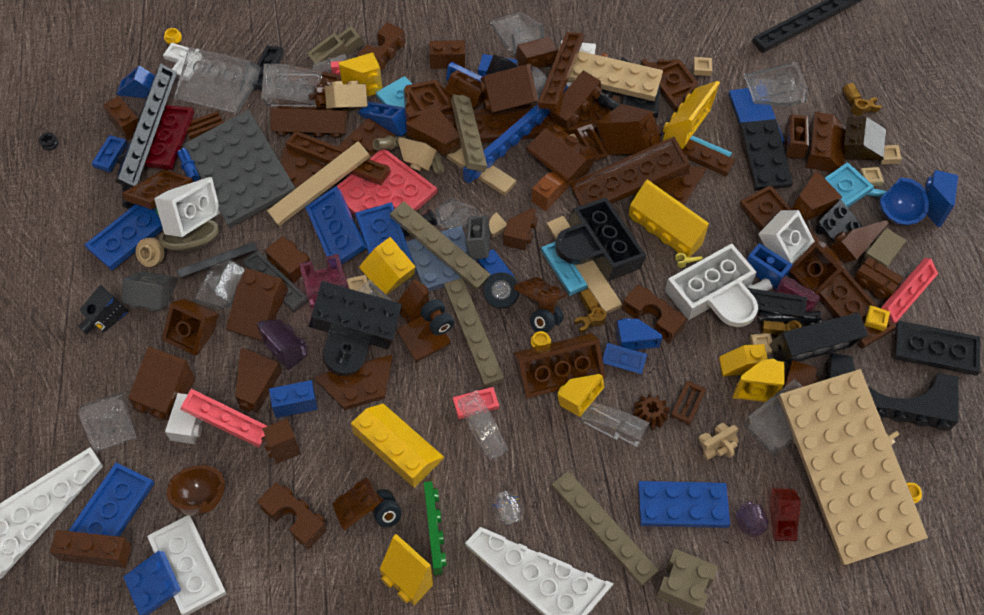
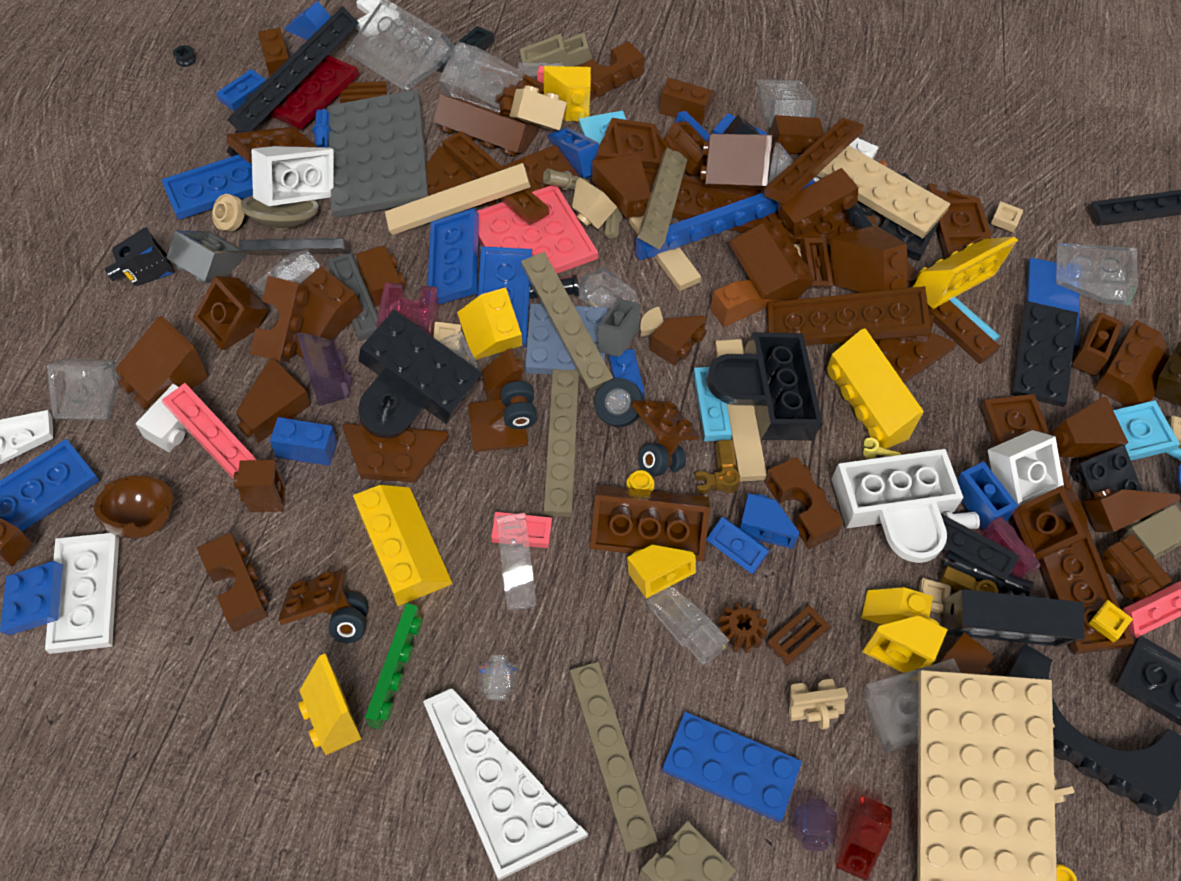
camera: 20 degrees right, 0 degrees up
(235, 300) = (289, 300): none -> reddish brown arch

